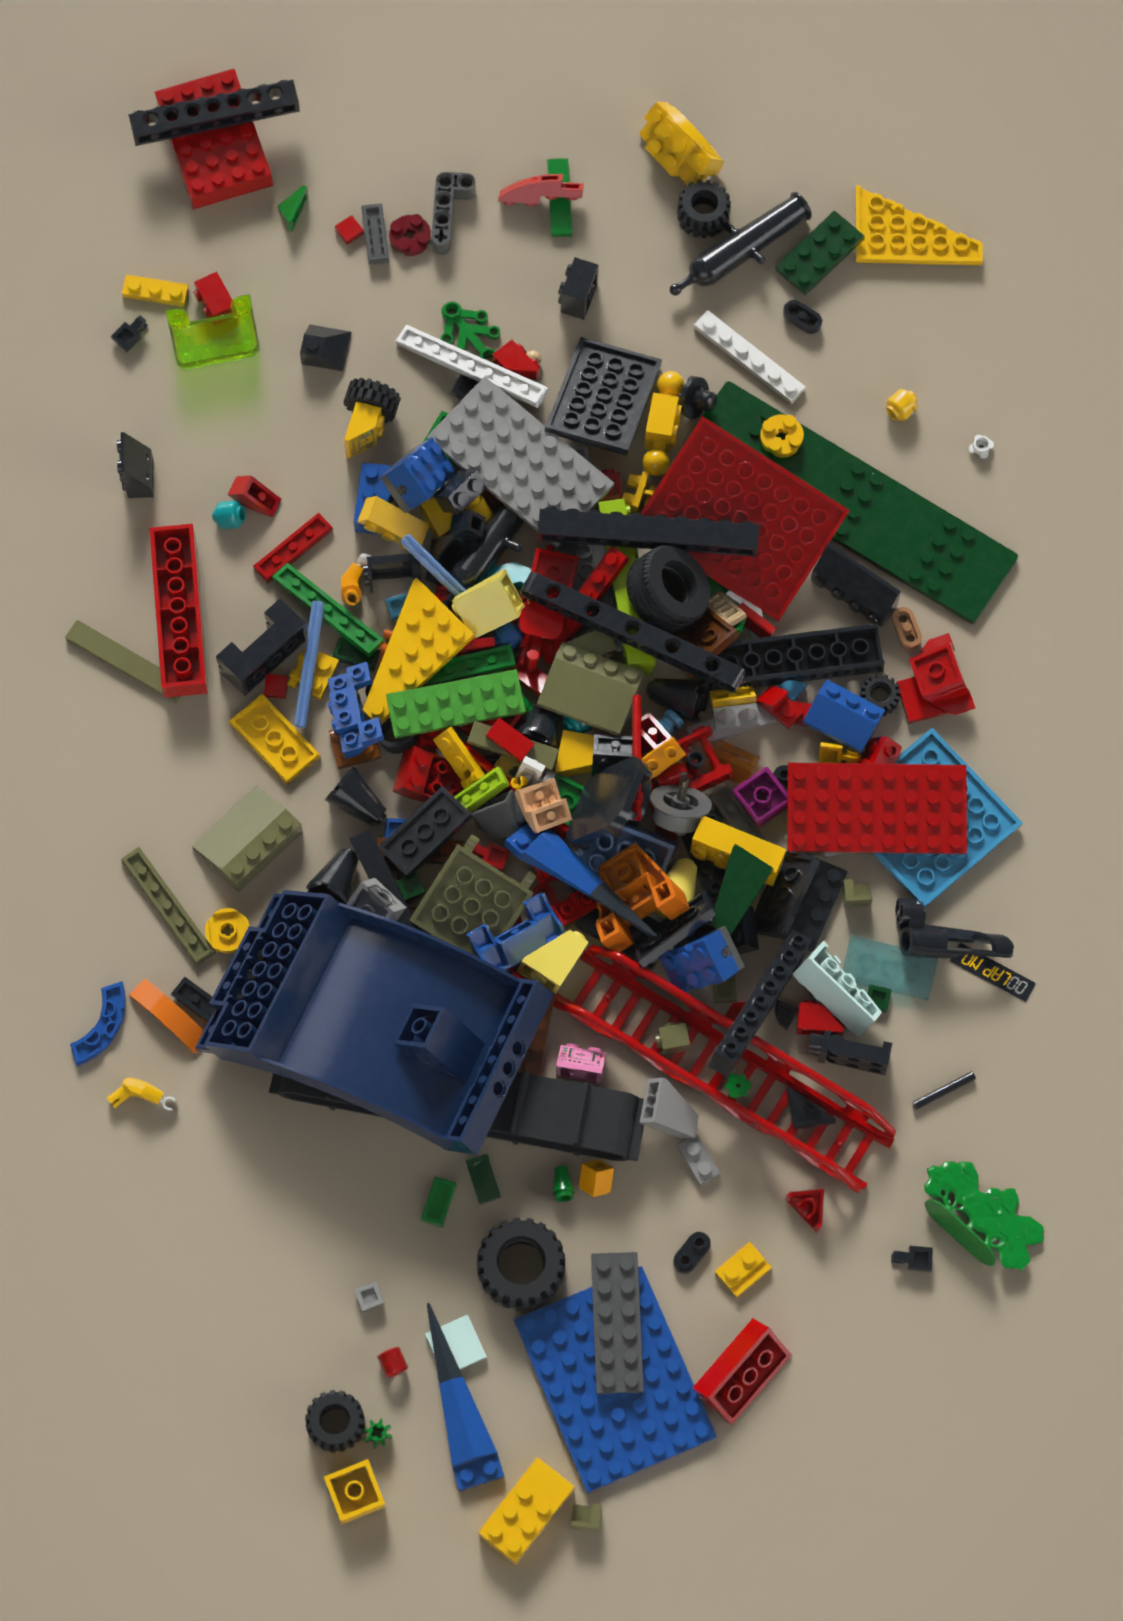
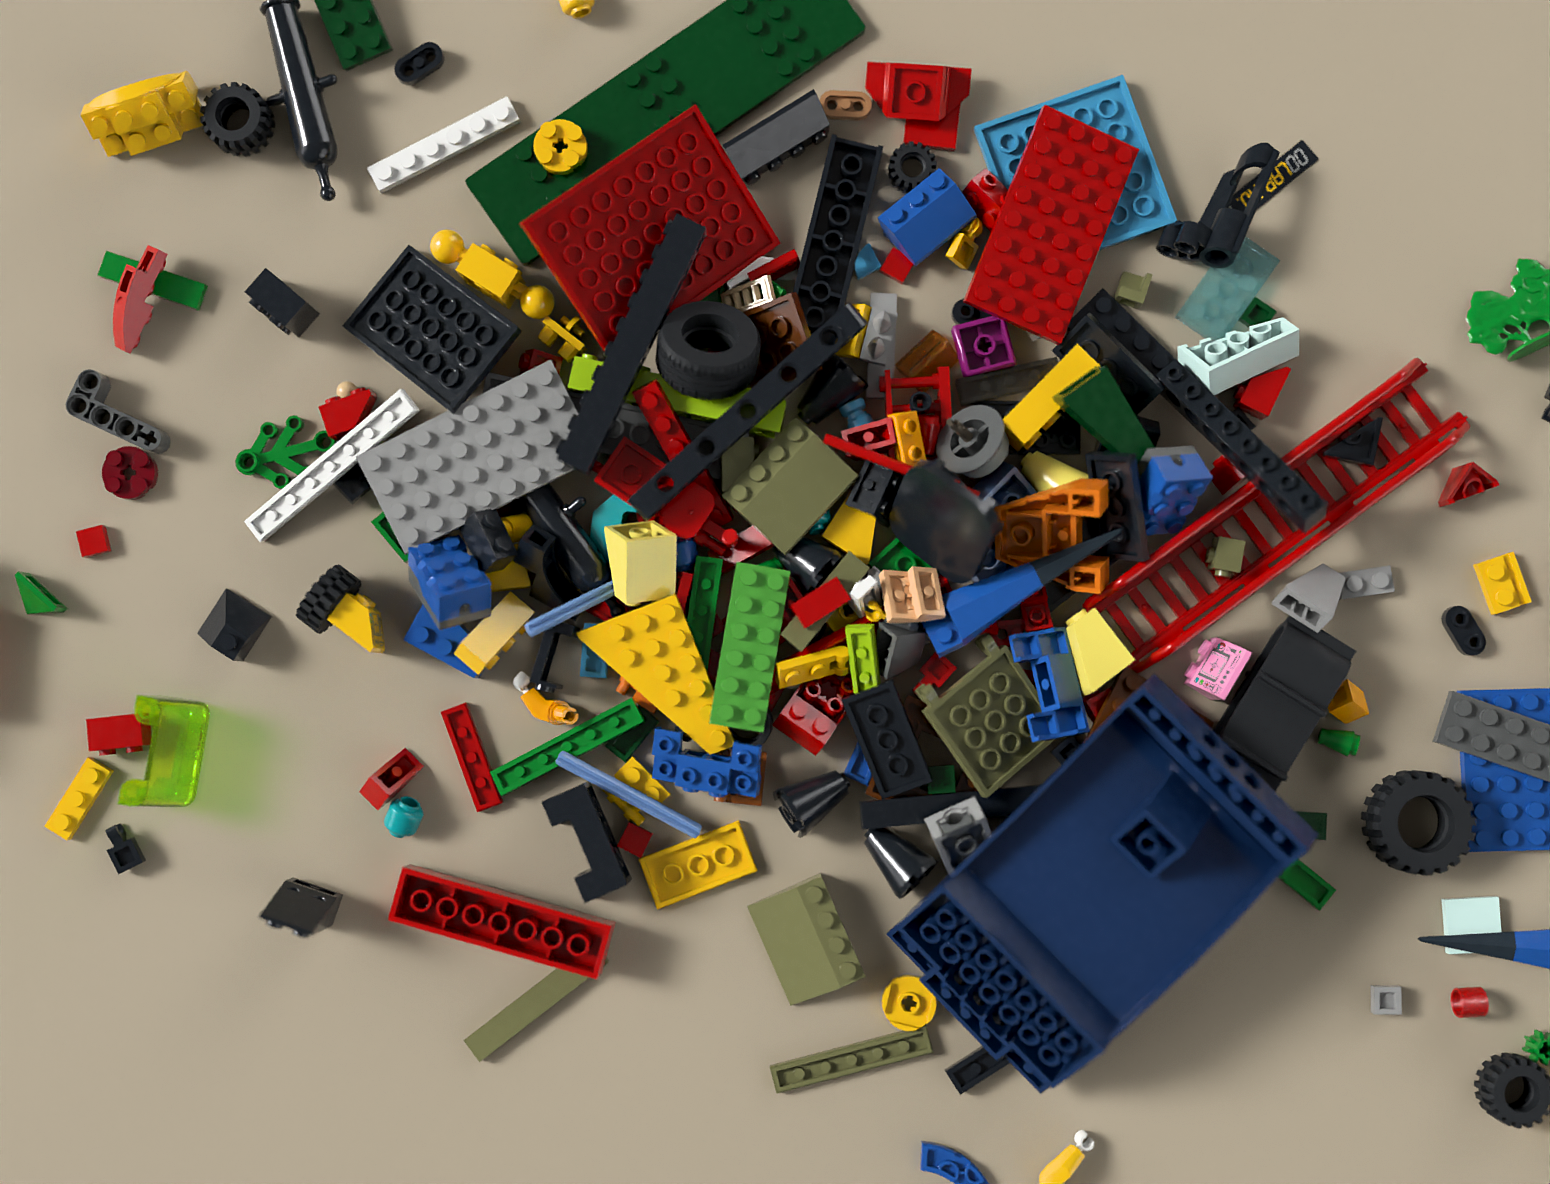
camera: 65 degrees left, 15 degrees up
(168, 1014) = (980, 1106): orange slope -> none
(375, 234) = (112, 513): dark grey plate -> none
(696, 398) = (475, 222): black plate -> none
(777, 704) = (884, 283): red slope -> none
(849, 1053) = (1302, 390): black hips -> none
(936, 1094) = (1385, 286): black bar -> none

